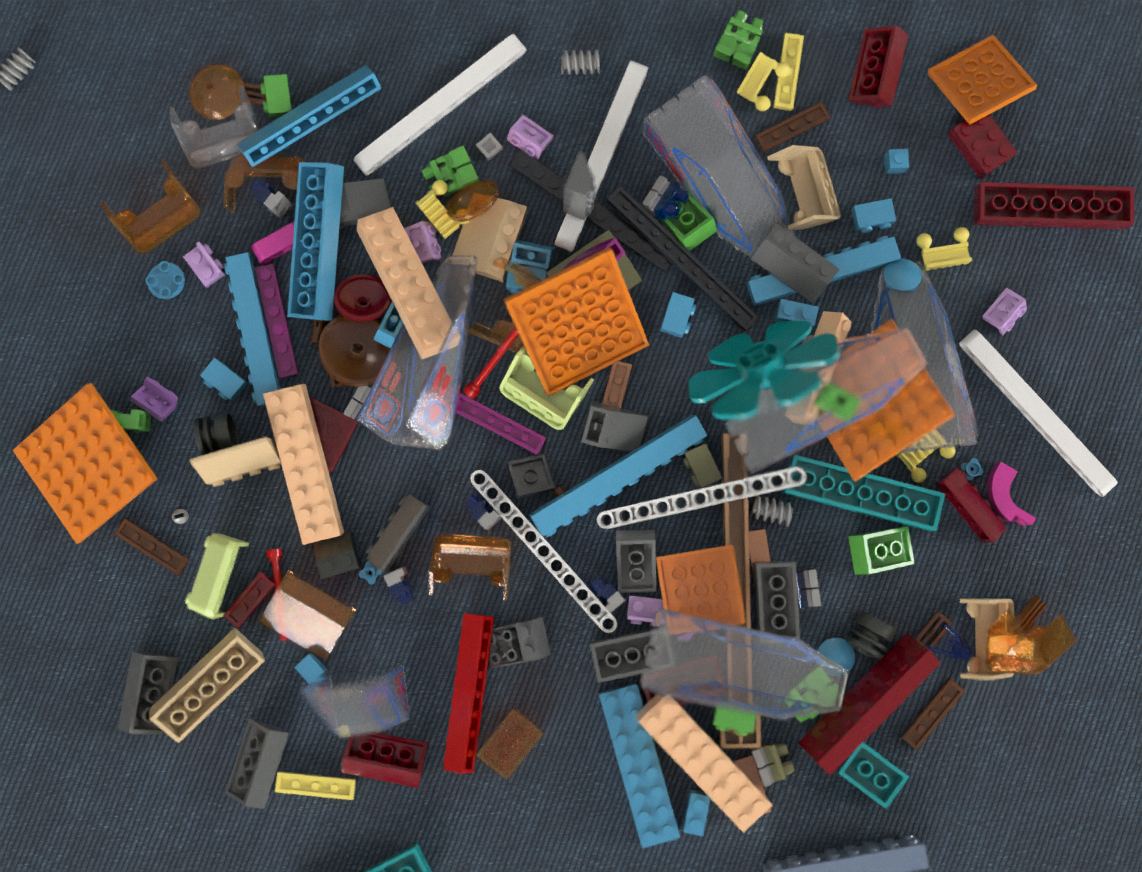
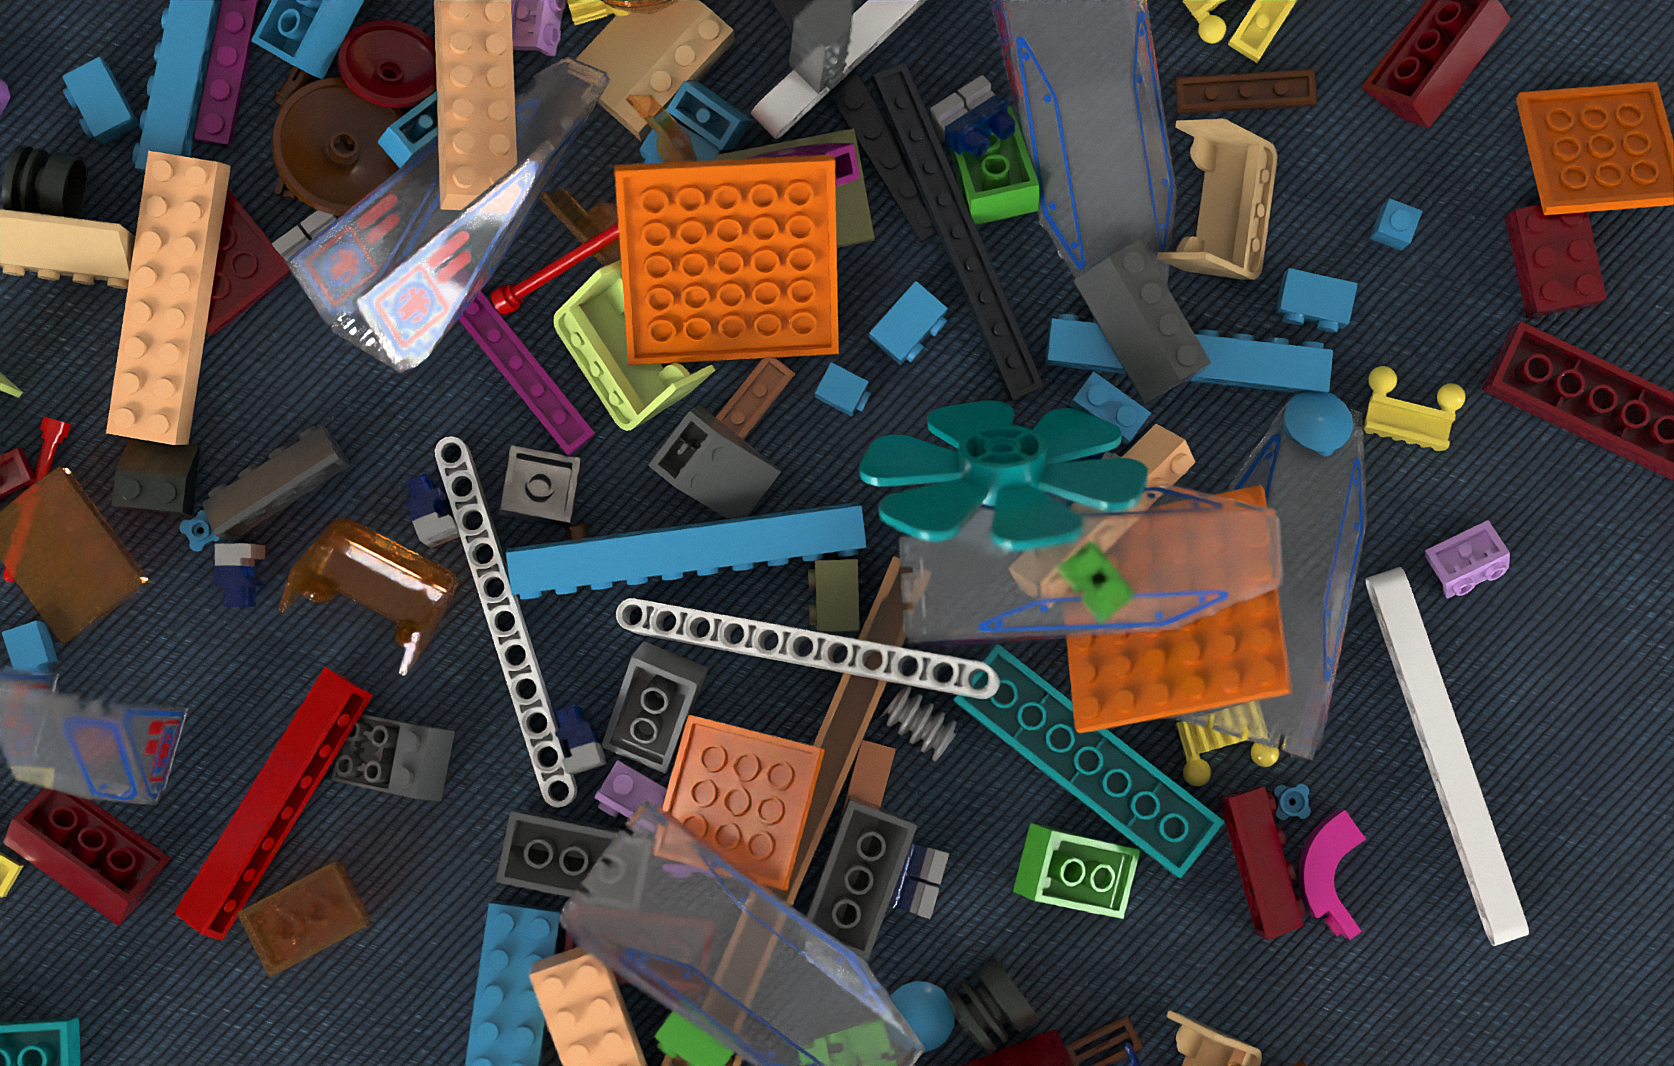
camera: 20 degrees right, 0 degrees up
(660, 362) = (843, 390): none -> dark azure brick

